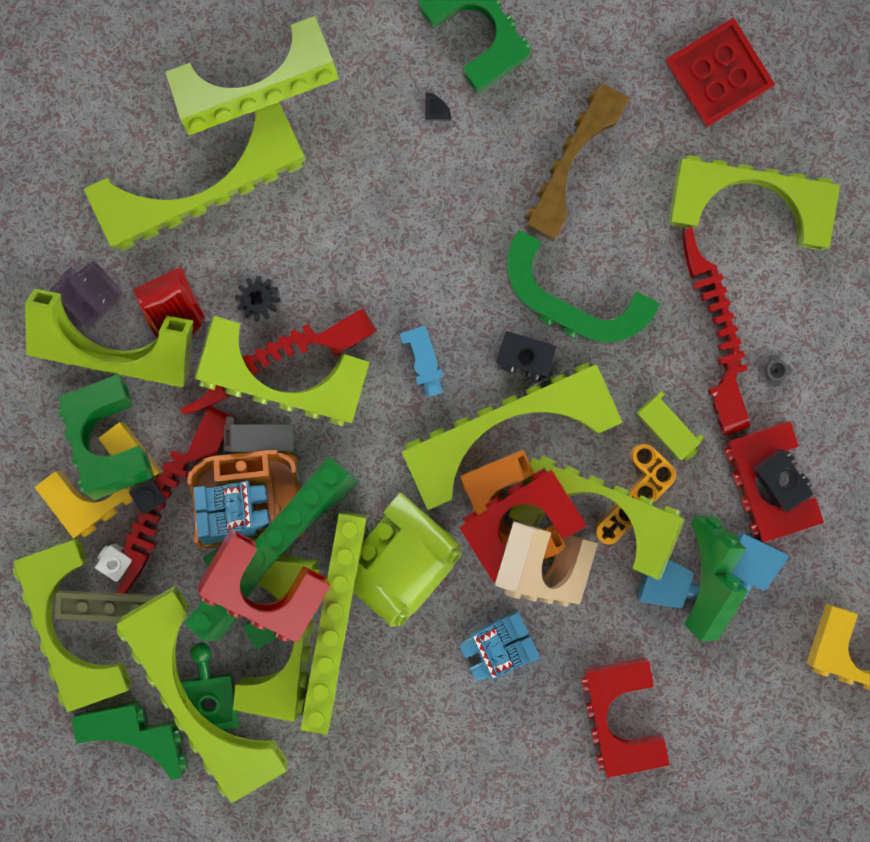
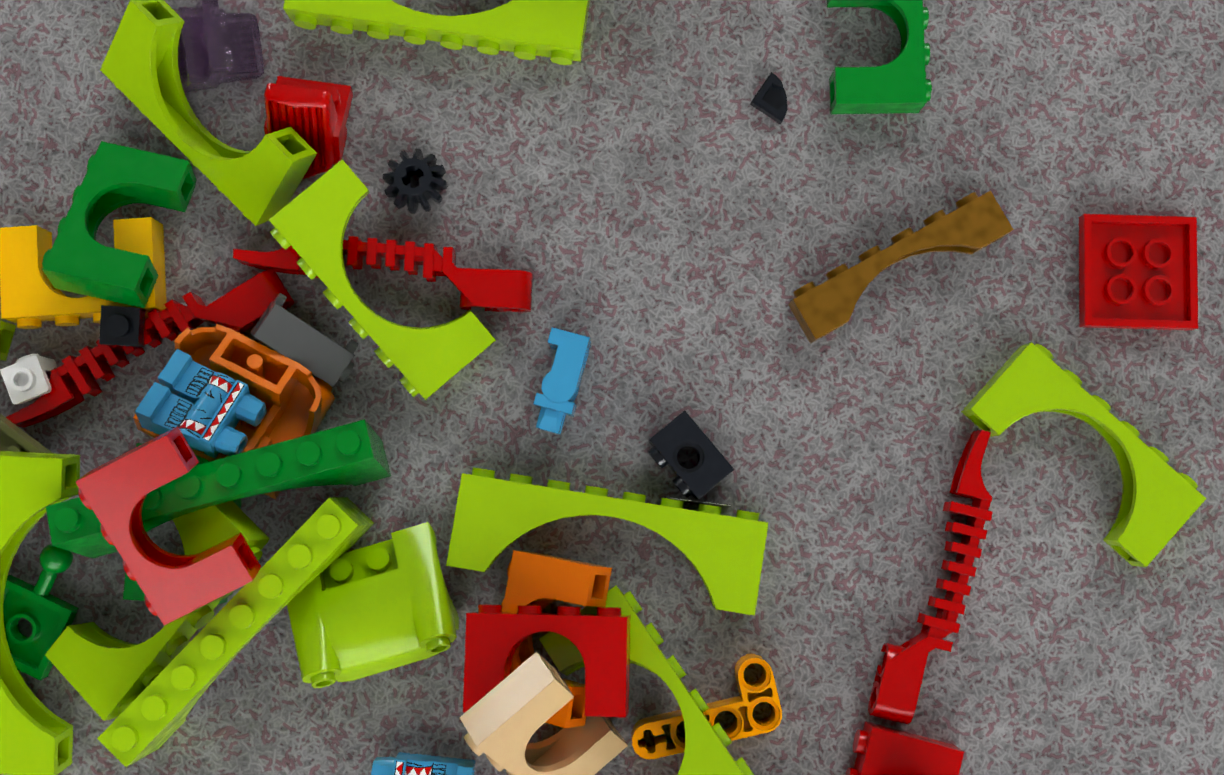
camera: 30 degrees right, 5 degrees down
(571, 319) = (773, 451): green arch -> none
(669, 428) = (806, 660): lime brick -> none
(775, 378) = (992, 680): dark grey plate -> none

